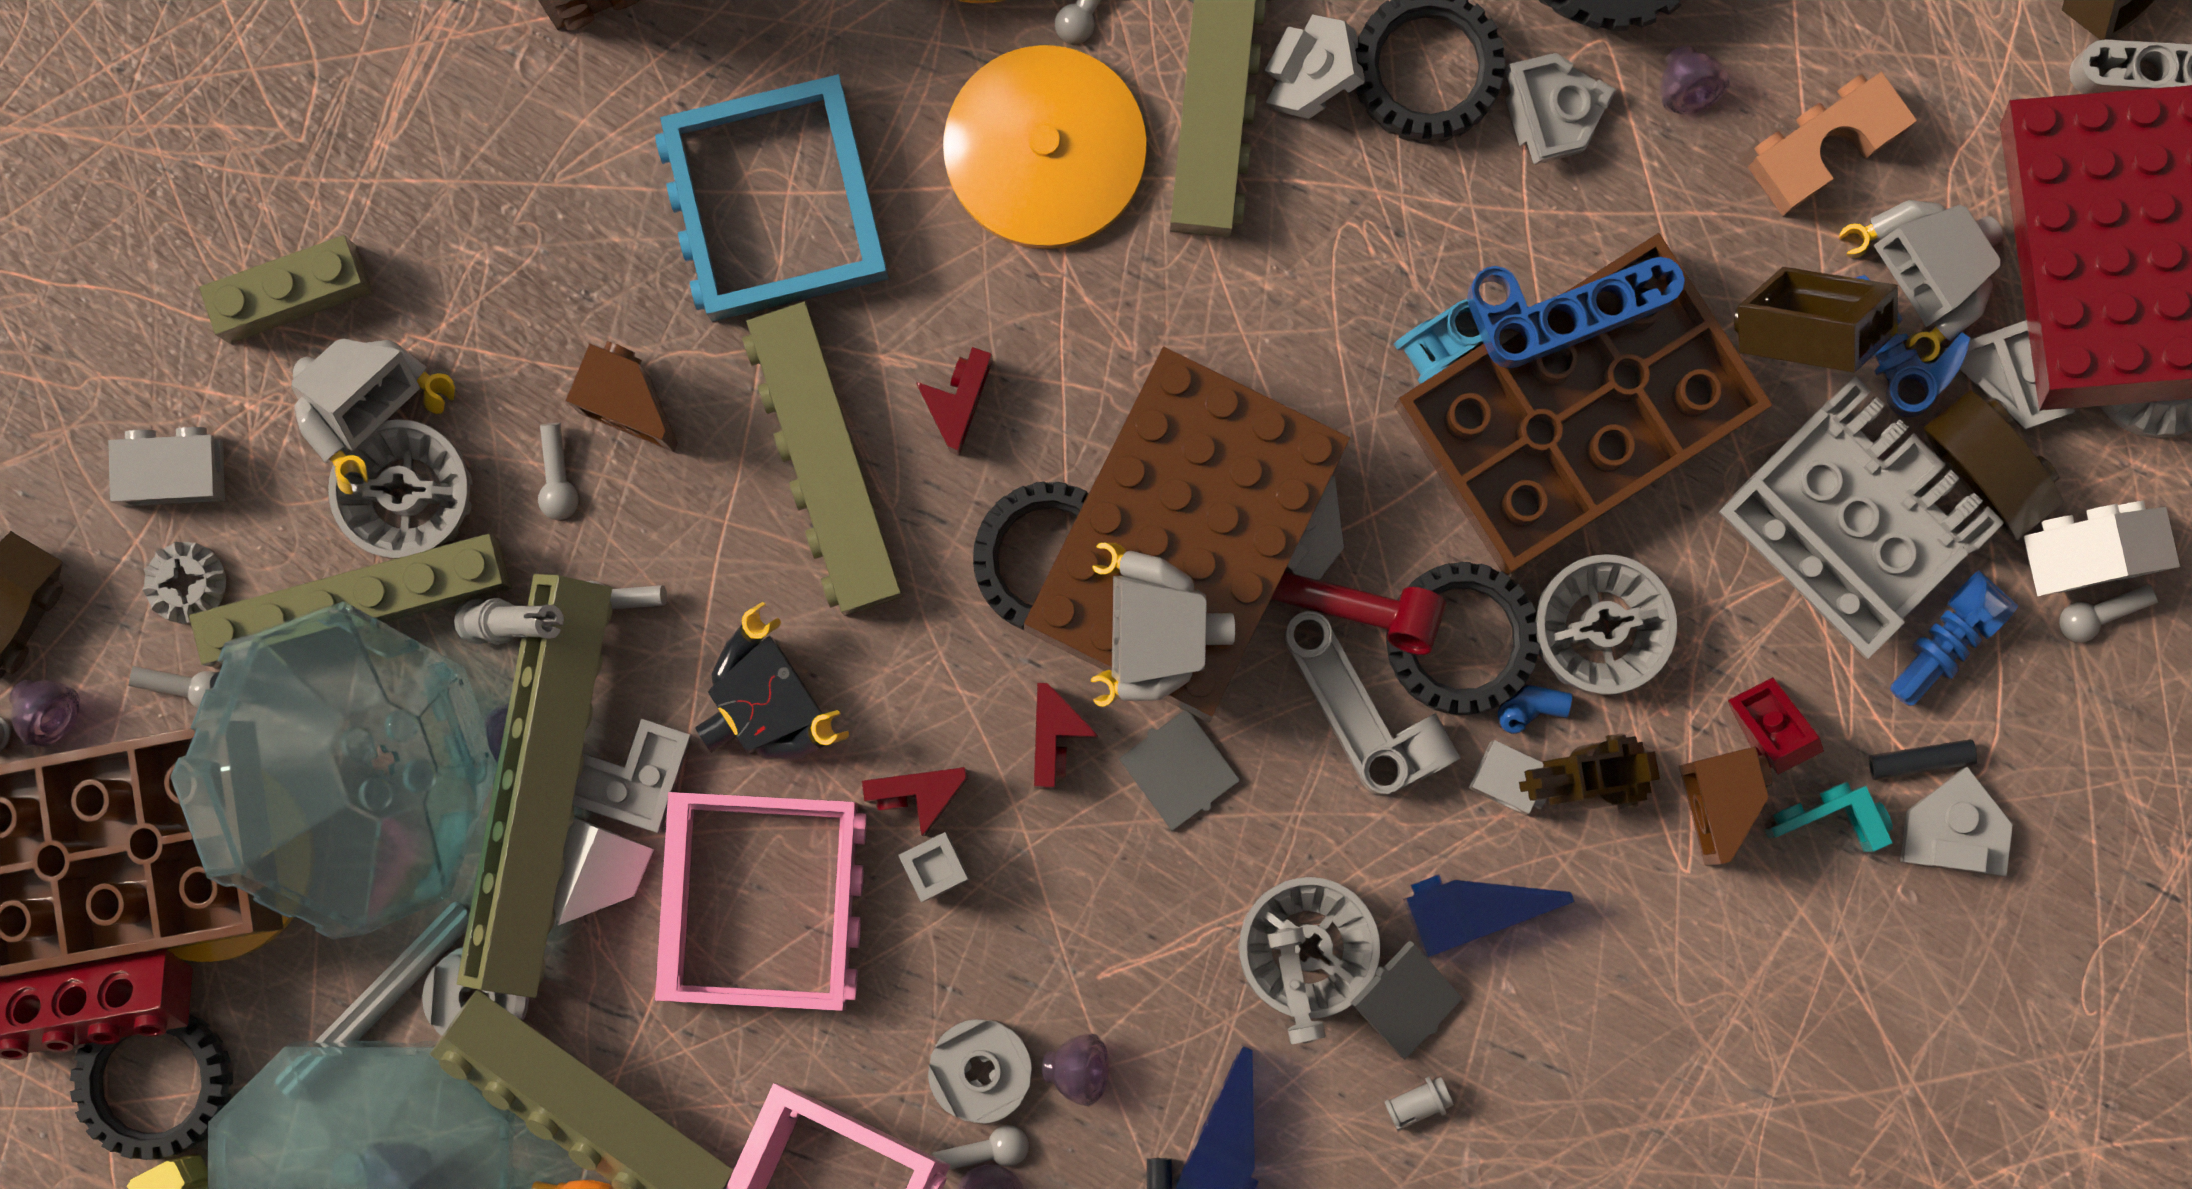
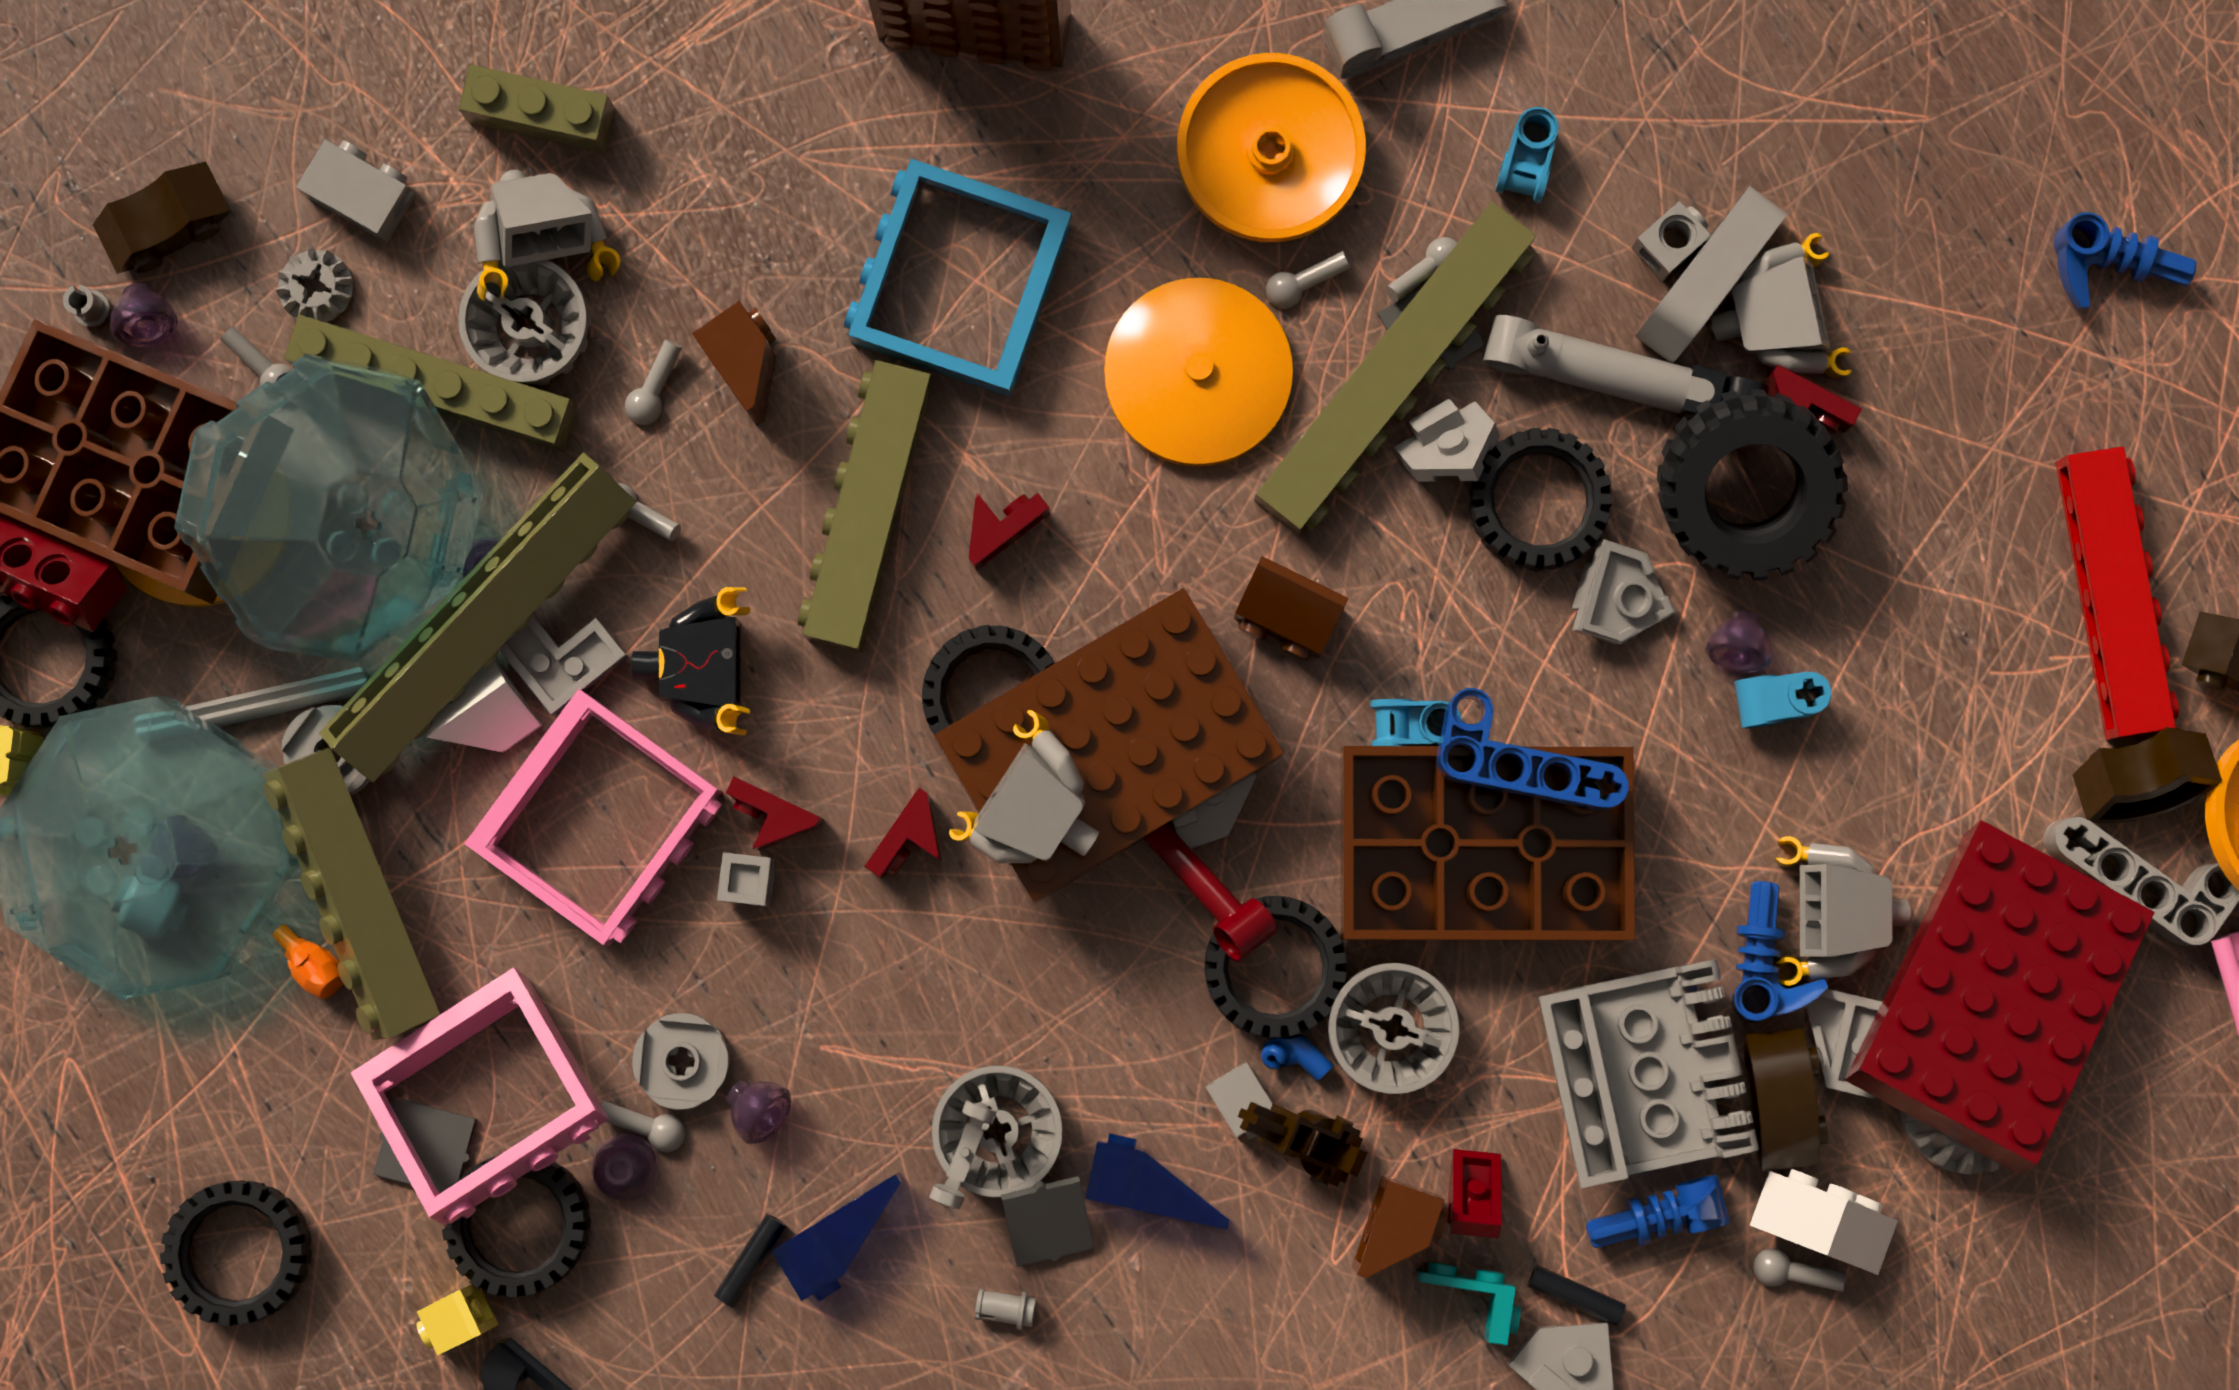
camera: 30 degrees right, 0 degrees up
(502, 621) = (536, 473): light grey pin -> none
(1179, 769) = (988, 926): dark grey piece -> none
(1269, 307) = (1289, 609): none -> reddish brown slope
(1355, 719) = (1182, 1031): light grey piece -> none
(1755, 111) = (1773, 698): none -> dark azure piece
(1817, 319) = (1714, 895): dark brown window -> none
(1867, 115) = (1862, 759): nougat arch -> none

